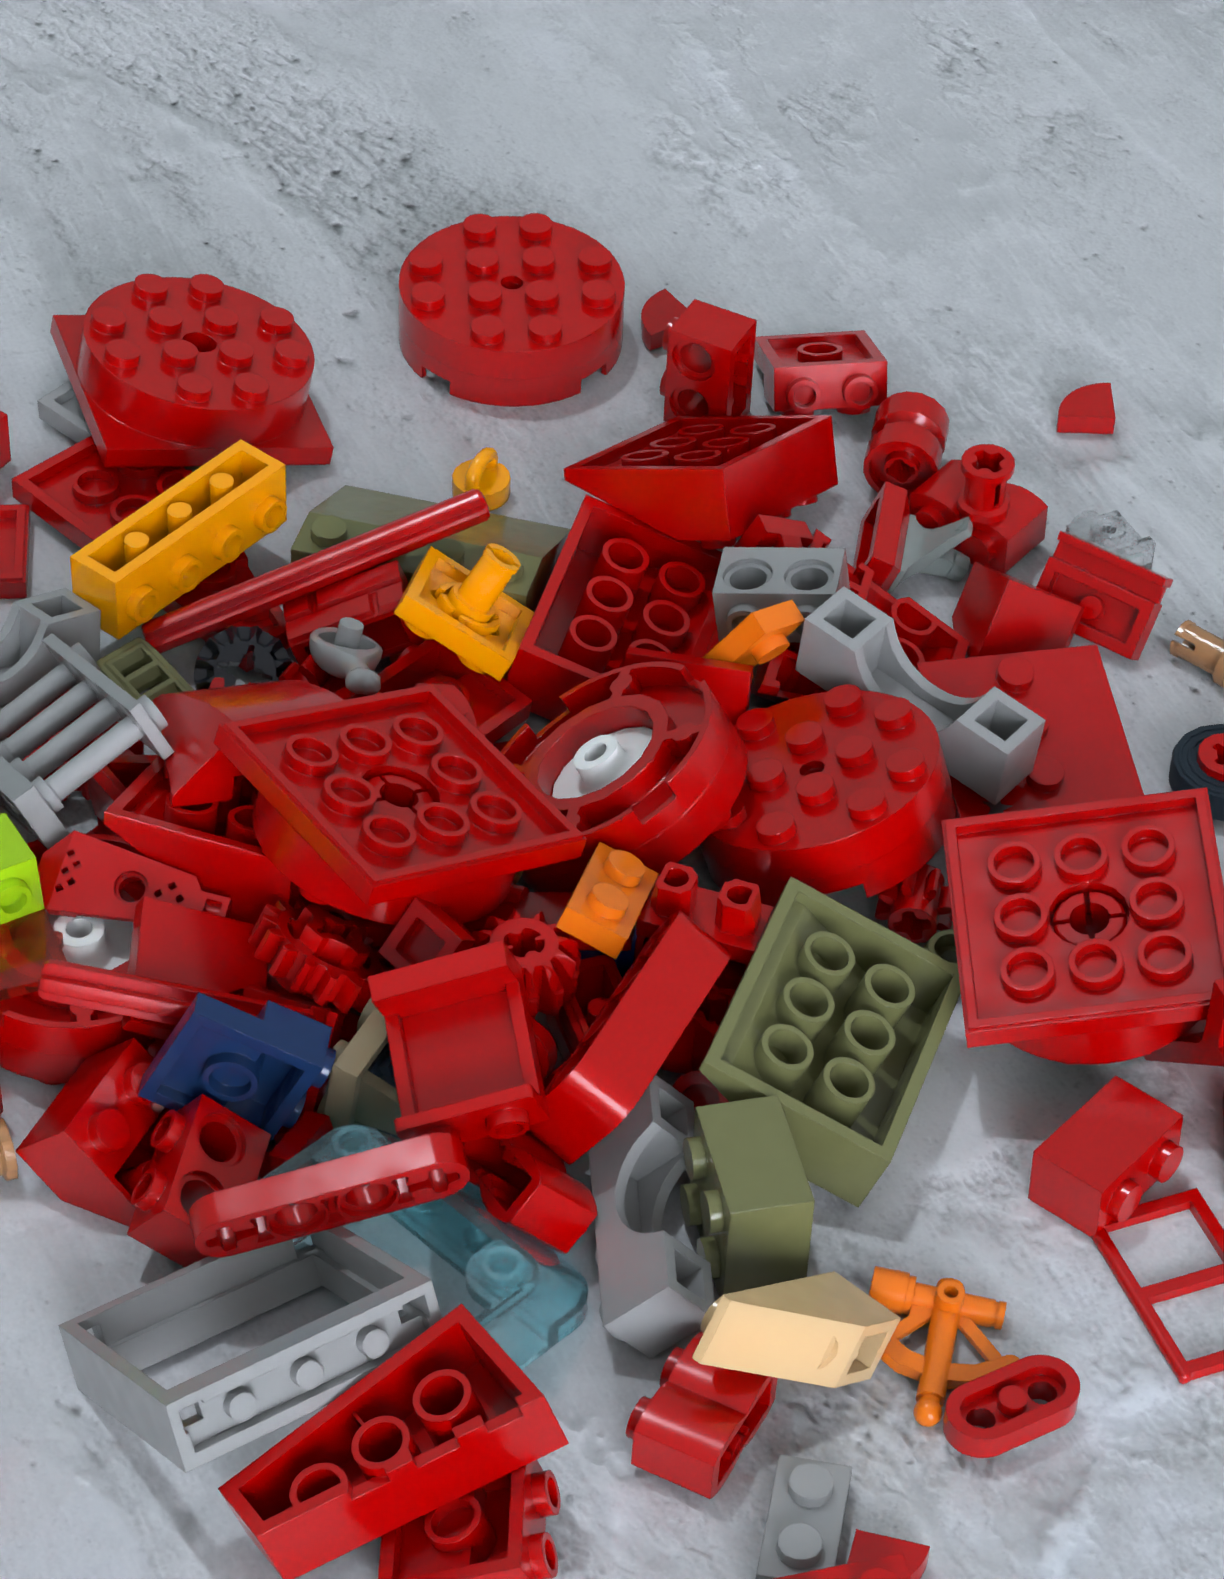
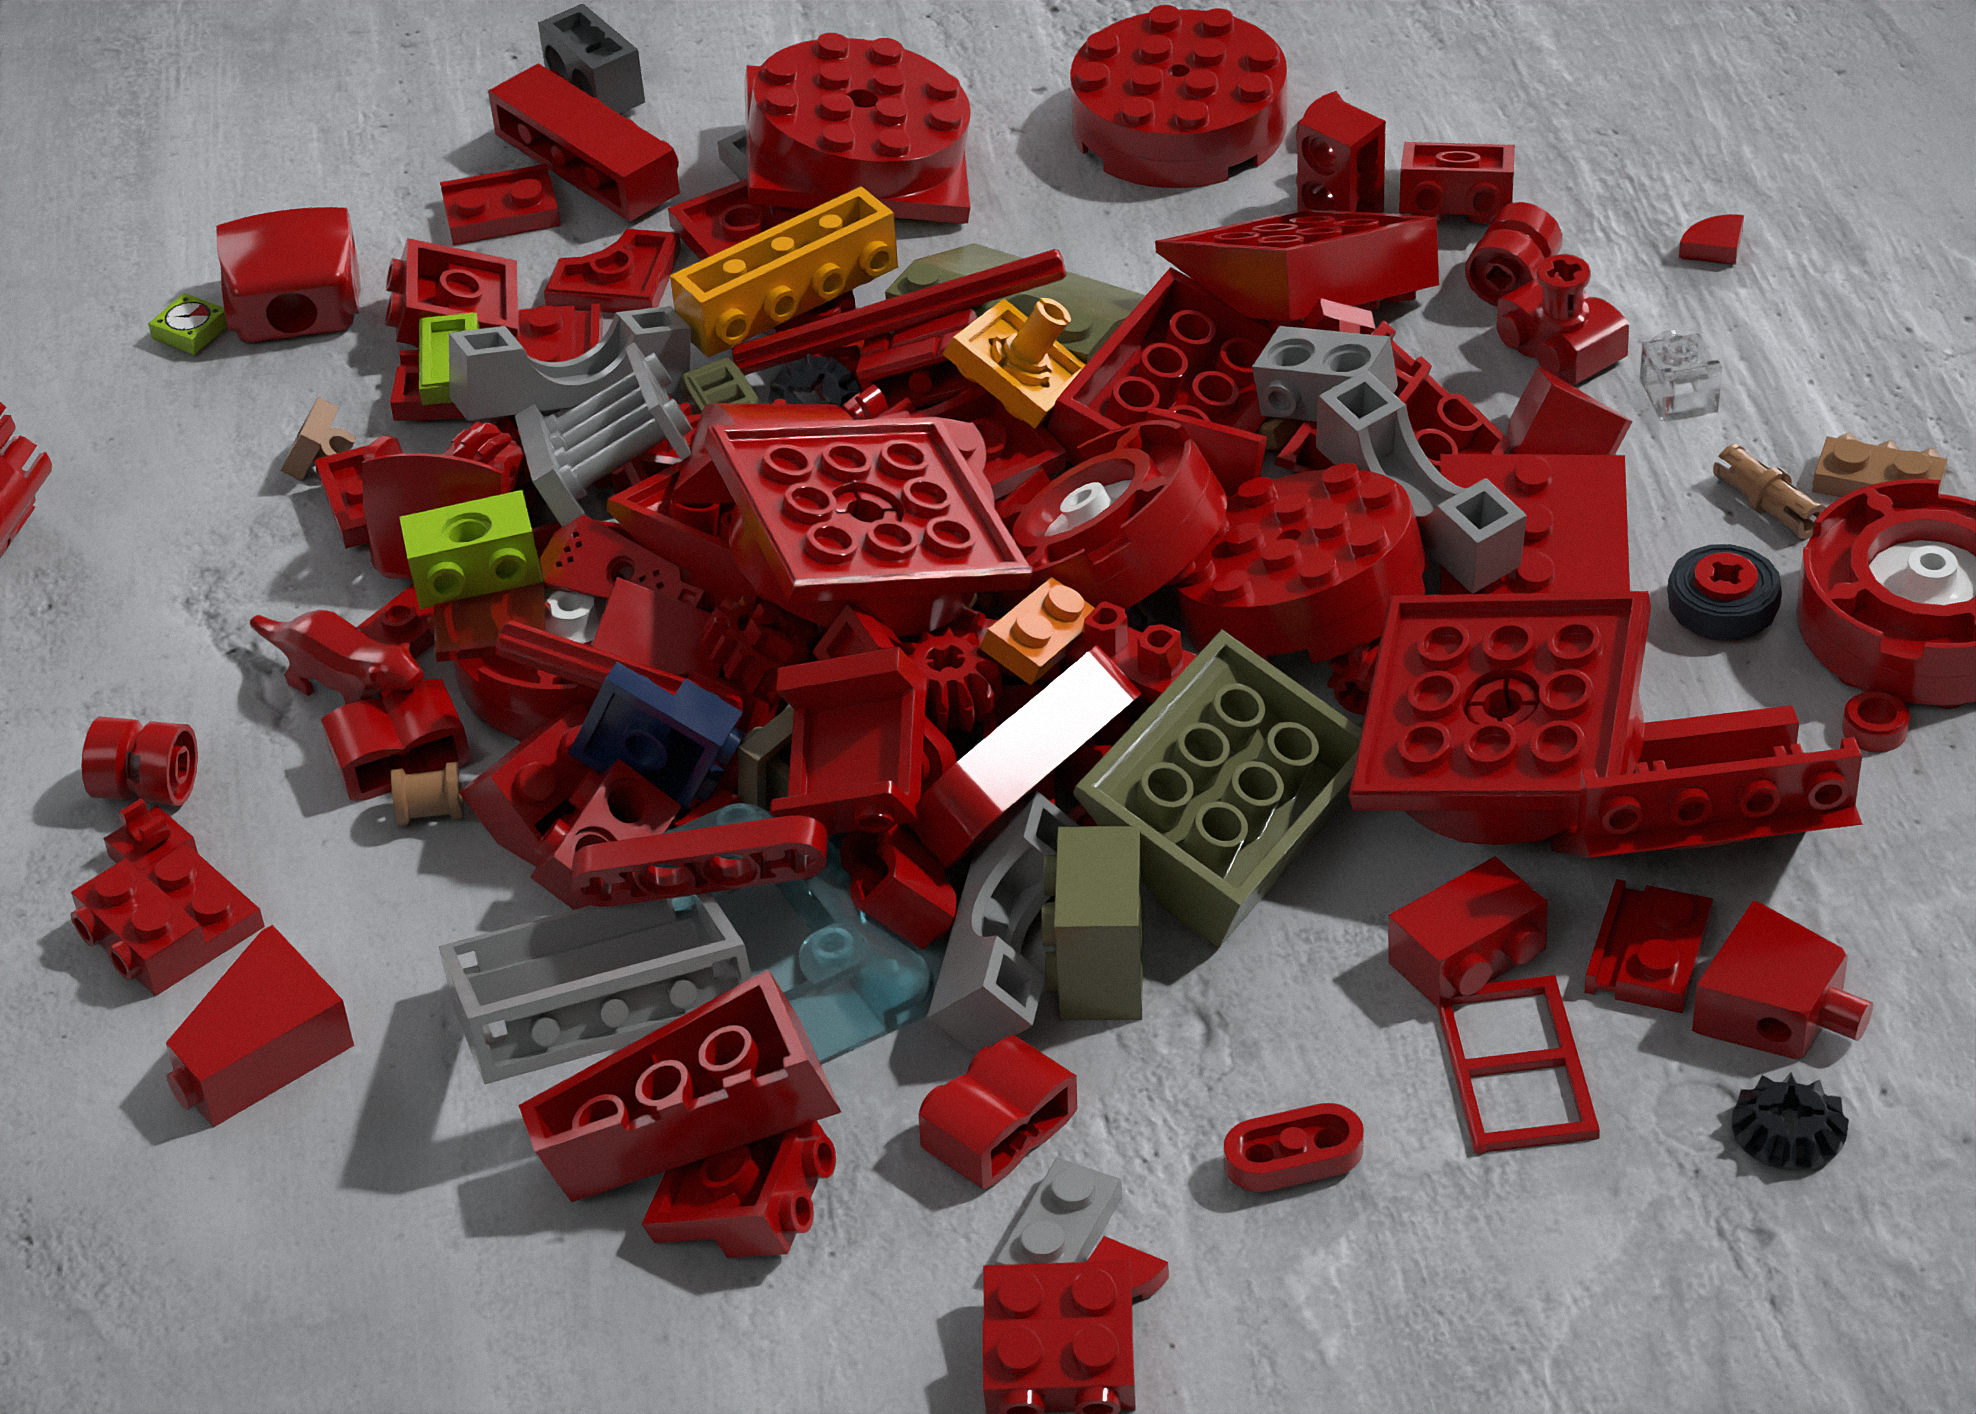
camera: 20 degrees right, 0 degrees up
(348, 655) = (895, 387): light grey piece -> none
(483, 474) = (1100, 251): light orange tile -> none
(759, 635) = (1278, 411): orange plate -> none
(798, 1331) = (1100, 1045): tan slope -> none
(900, 547) = (1479, 348): piece -> none
(947, 1310) = (1263, 1050): orange piece -> none
(1116, 592) = (1665, 409): red plate -> none

